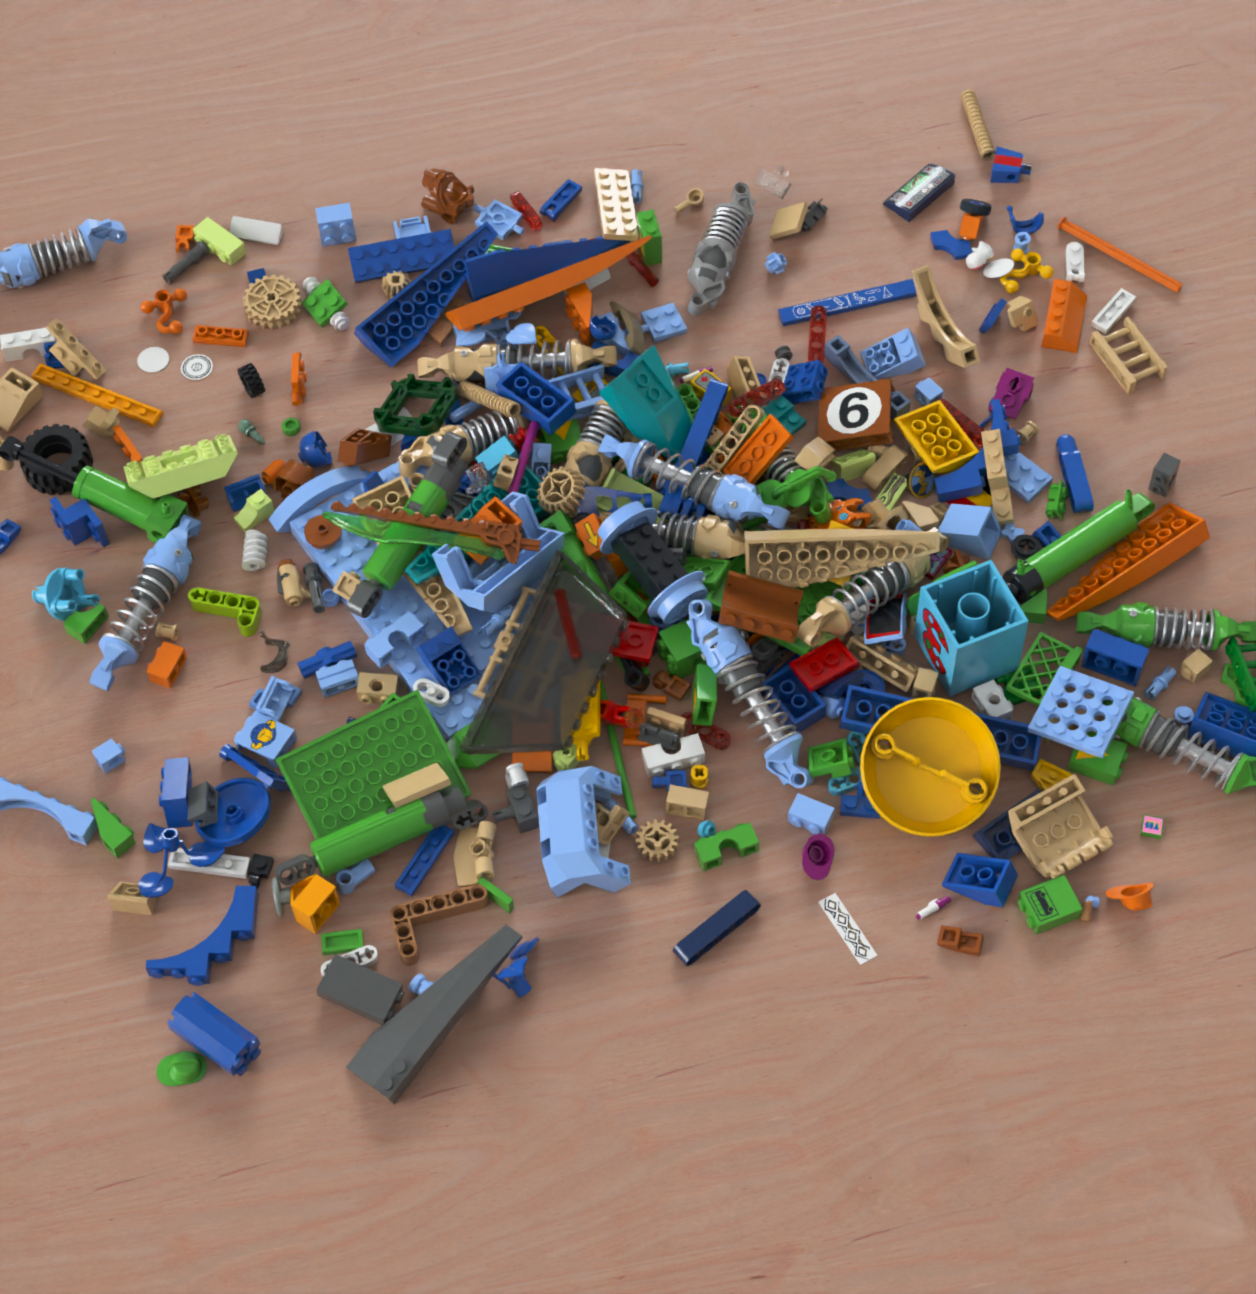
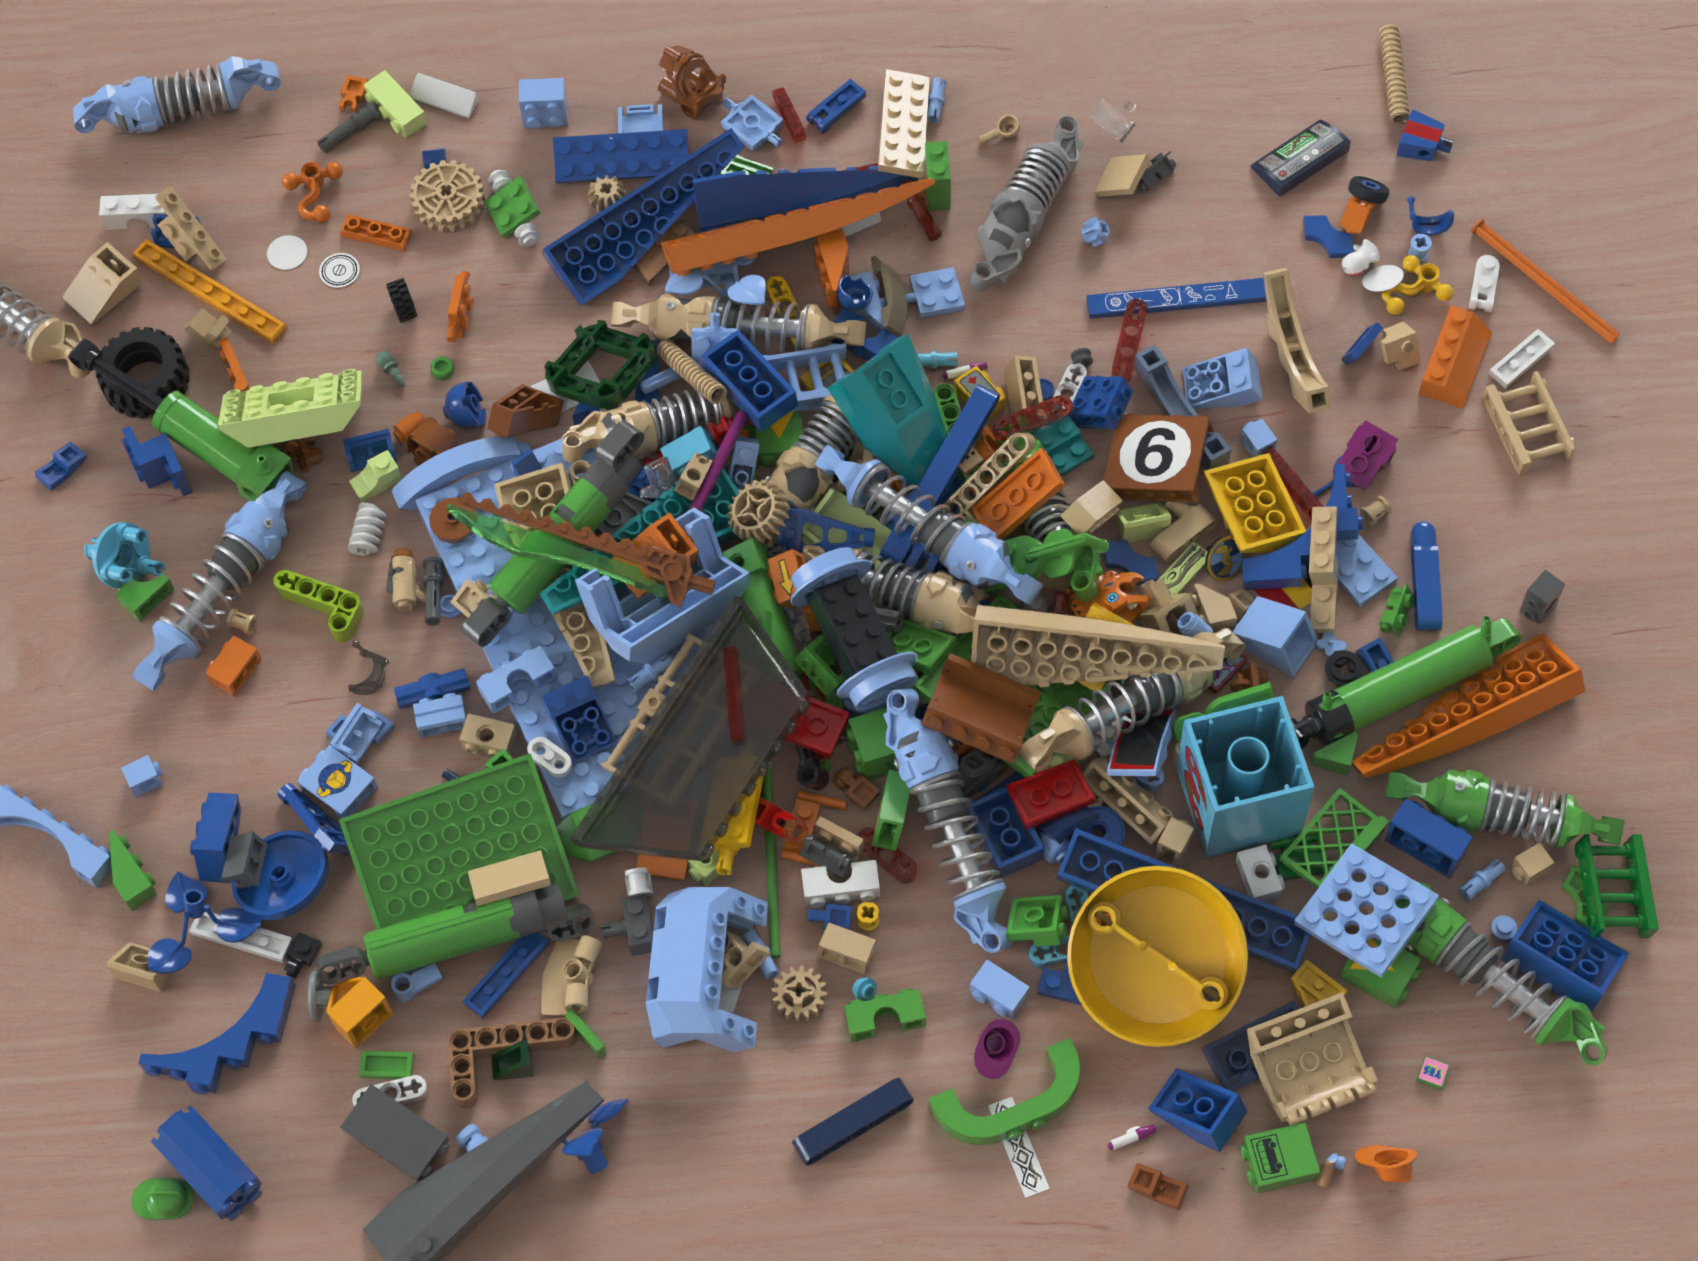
camera: 10 degrees right, 5 degrees up
(442, 924) = (513, 1062): none -> dark green slope
(841, 908) = (1018, 1118): none -> bright green arch

